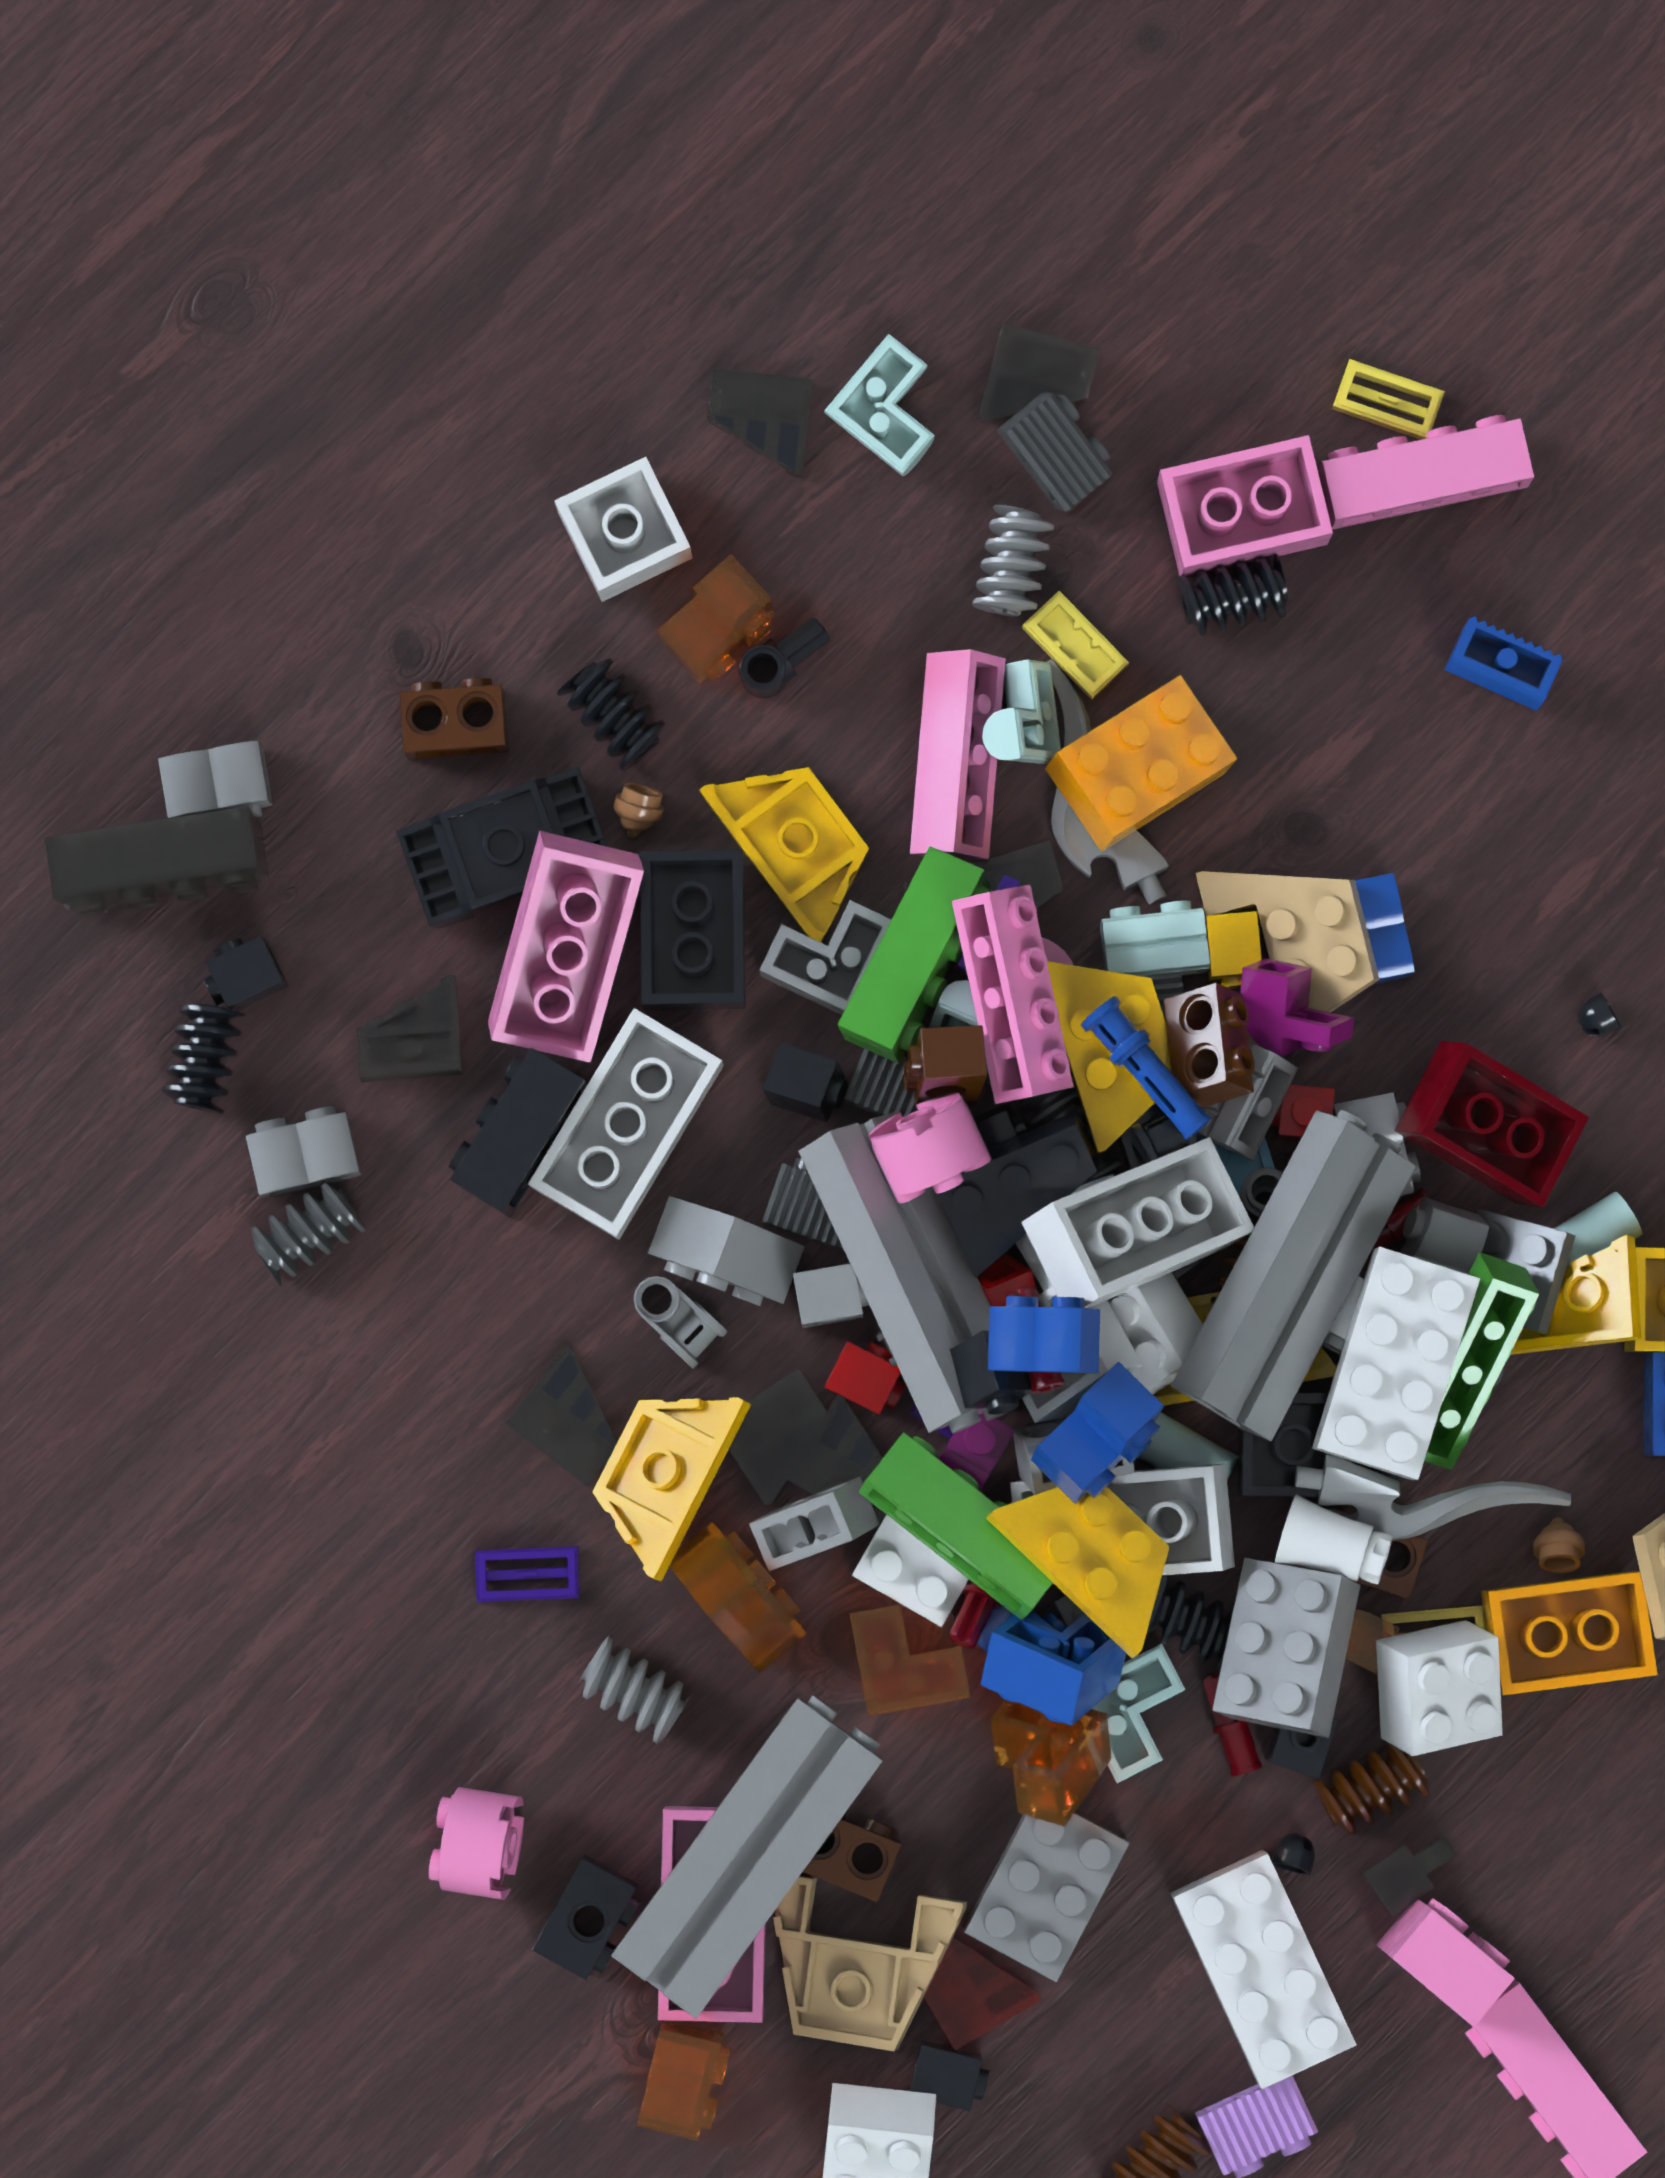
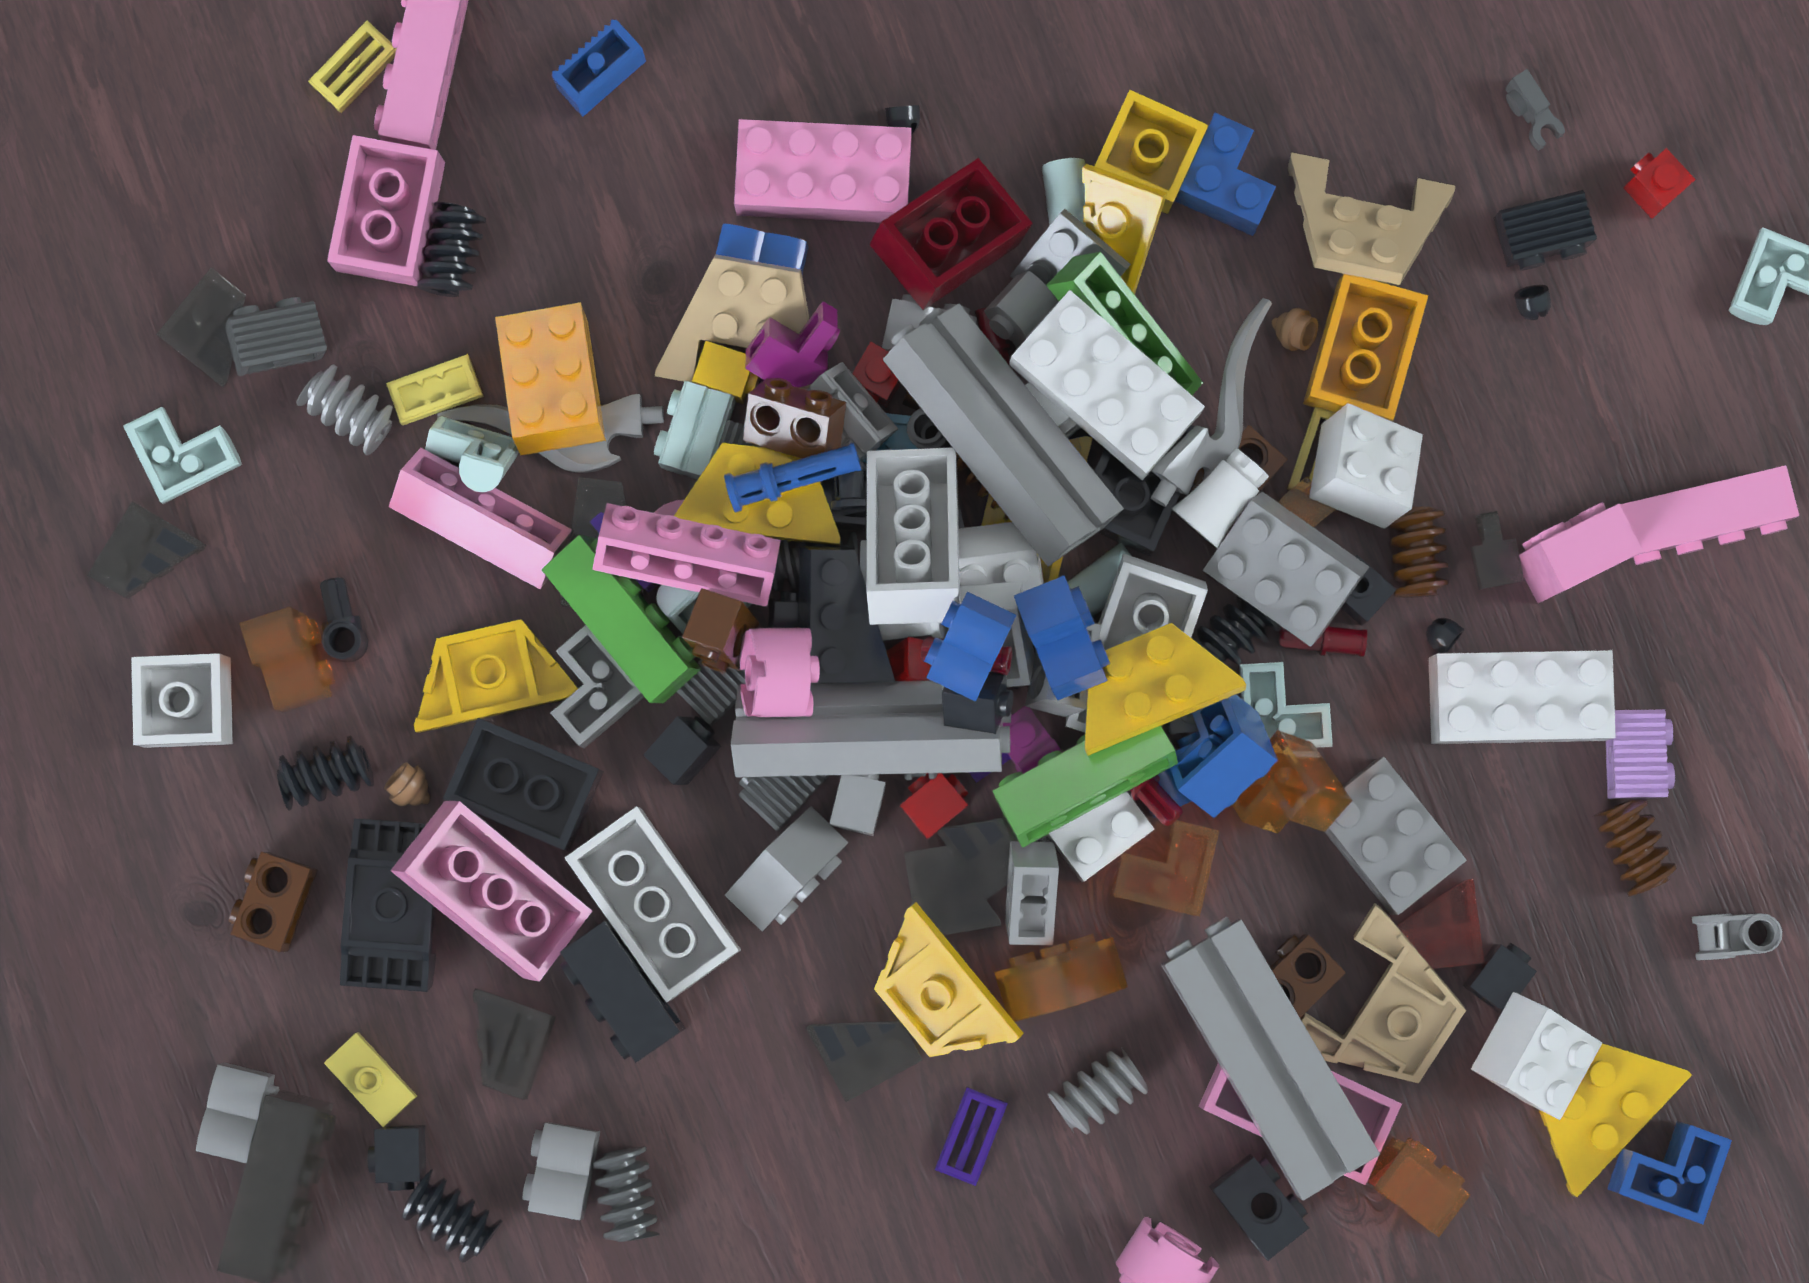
camera: 70 degrees left, 0 degrees up
(311, 907) = (370, 1079): none -> light yellow plate
(680, 1321) = (826, 929): light grey piece -> none
(1500, 954) = (821, 170): none -> bright pink brick

